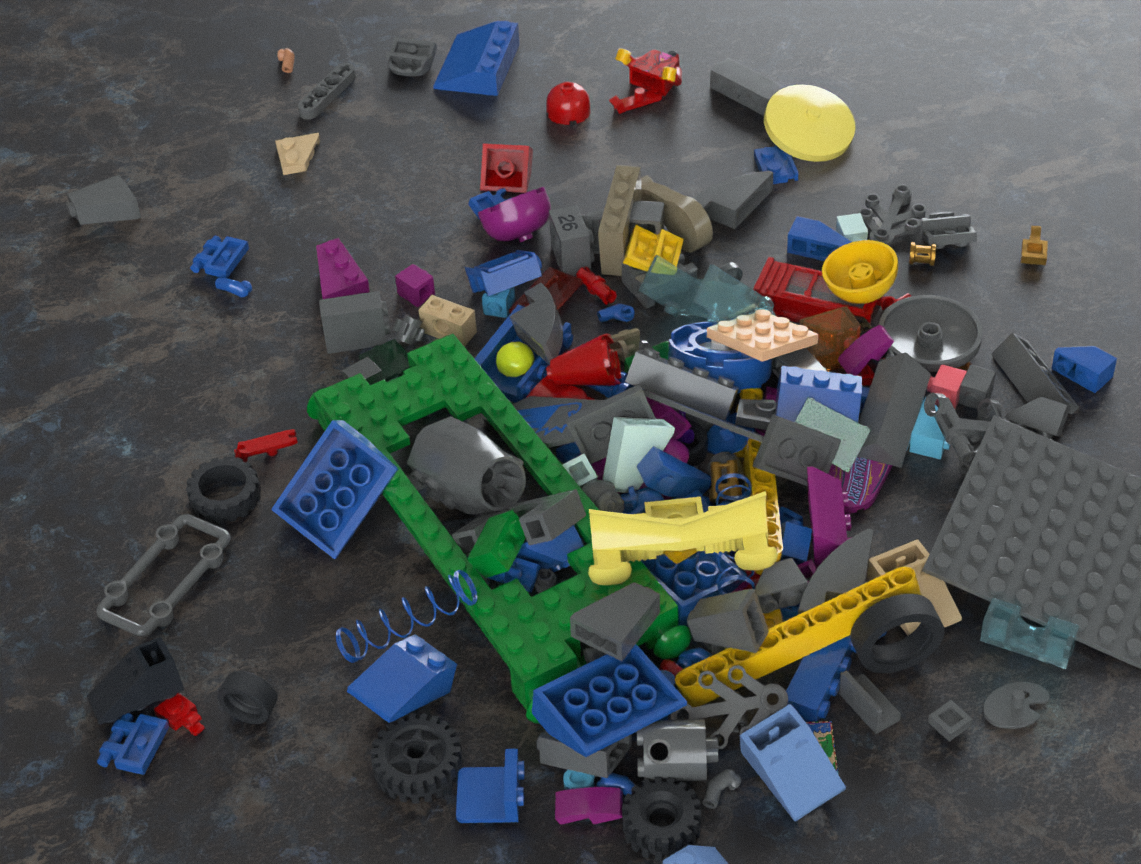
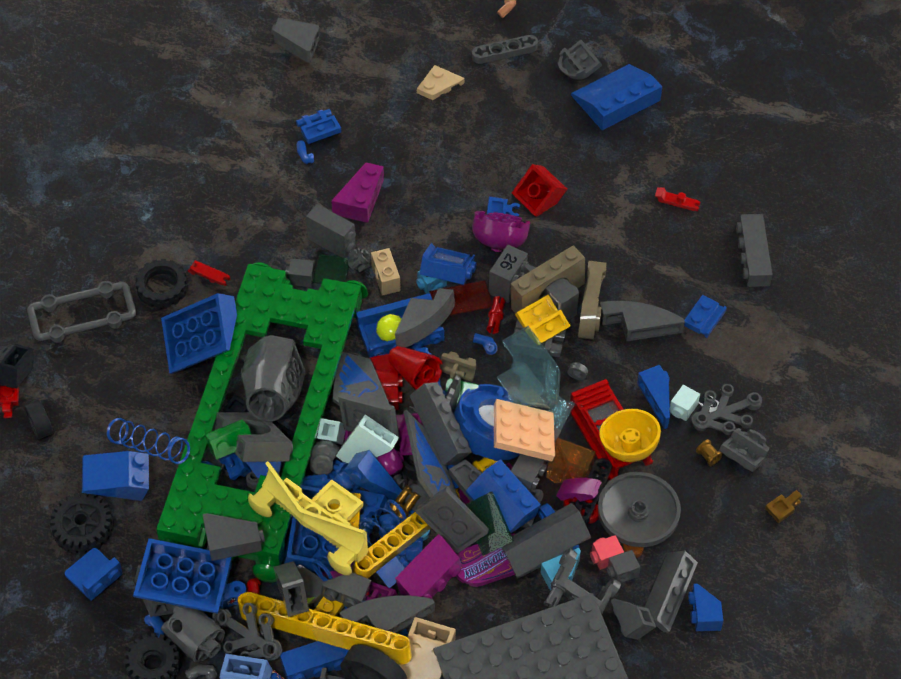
camera: 40 degrees right, 10 degrees up
(415, 285) = (397, 232): magenta brick -> none
(568, 103) = (631, 171): red cylinder -> none
(576, 779) = (139, 607): medium azure tile -> none
(595, 803) = (130, 622): magenta slope -> none
(653, 69) = (711, 185): red torso -> none
(692, 656) = (271, 589): blue arm -> none
(809, 123) = (755, 303): light yellow dish -> none
(889, 300) = (646, 466): red hand -> none

